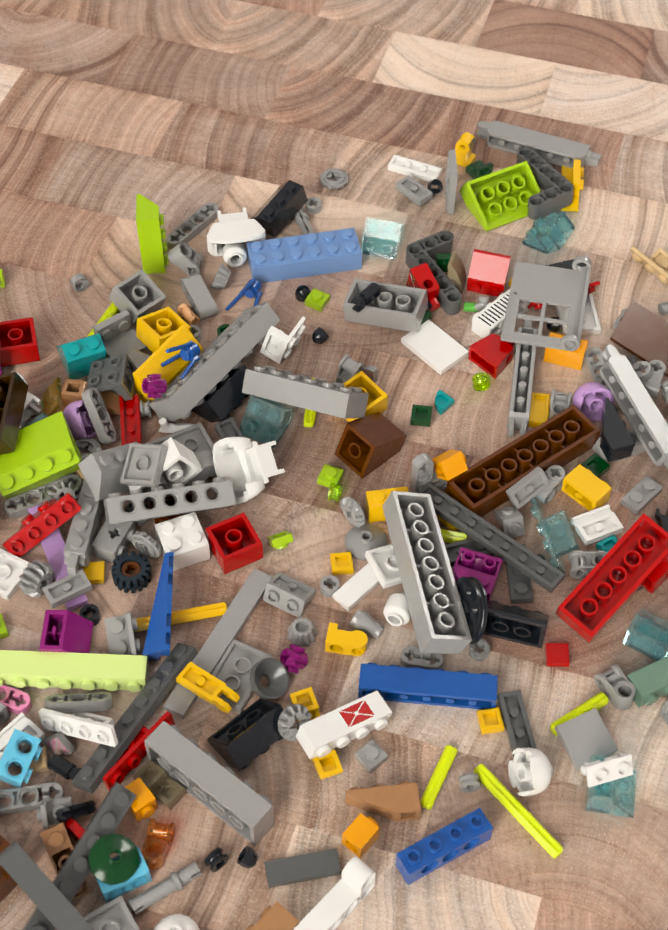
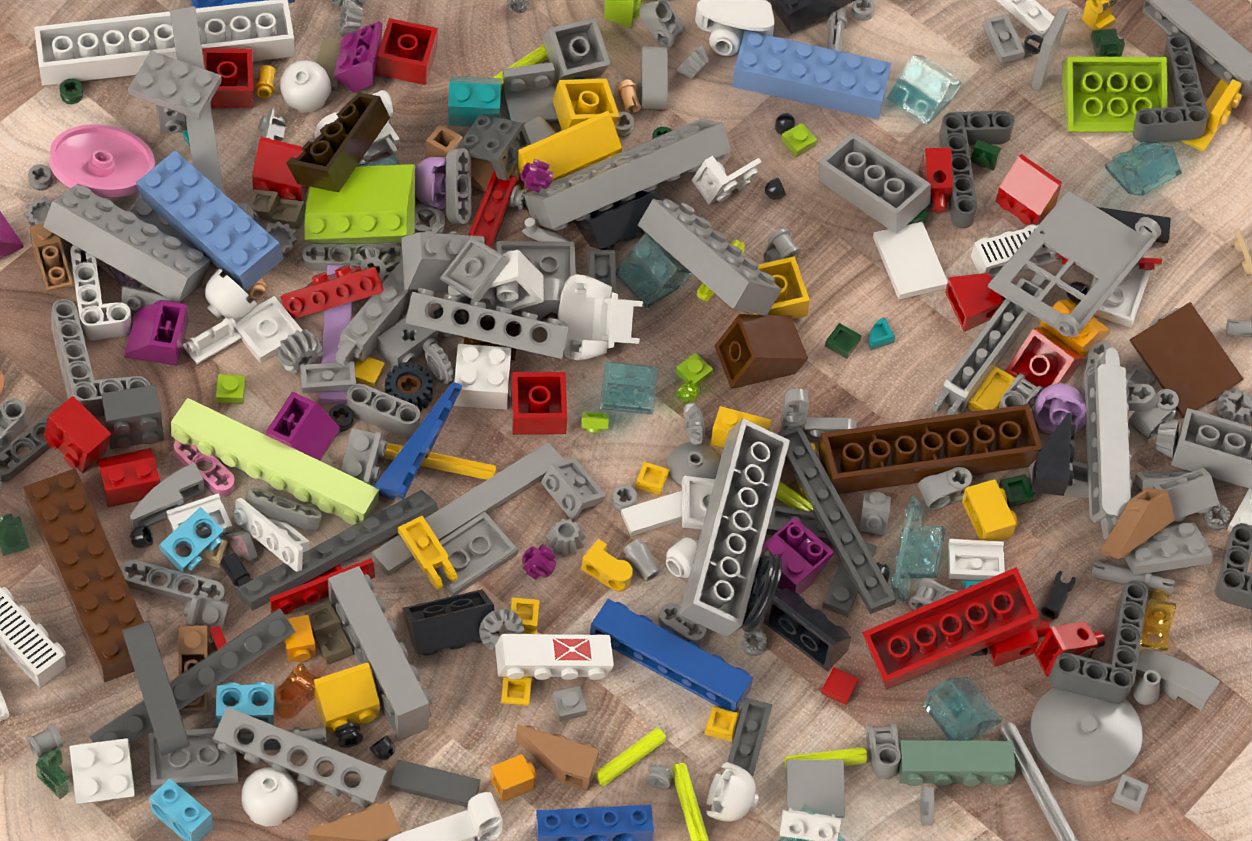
camera: 20 degrees right, 5 degrees up
(52, 398) = (414, 141): clear yellow piece -> none
(75, 811) = (226, 621): black axle -> none
(112, 590) = (375, 401): none -> light grey beam
(112, 871) = (240, 698): dark green dish -> none
(189, 352) = (597, 149): blue plant -> none
(201, 830) = (347, 697): none -> yellow slope
(251, 290) = (722, 95): blue plant -> none
(251, 886) = (235, 722): none -> light grey brick
(276, 675) = (510, 569): dark grey piece -> none
(293, 506) = (628, 388): none -> clear light blue slope
(366, 296) = (849, 163): black bar -> none
(371, 372) = (809, 262): light grey tile -> none
(449, 464) = (834, 415): light orange brick -> none
(457, 271) = (989, 173): dark tan slope -> none
(476, 306) = (991, 228): arm -> none
(481, 381) = (940, 328): clear neon green bush -> none
(528, 487) = (913, 481): light grey plate -> none
(561, 374) = (1044, 359): none -> red slope
(641, 495) = (1054, 548): light grey plate -> none

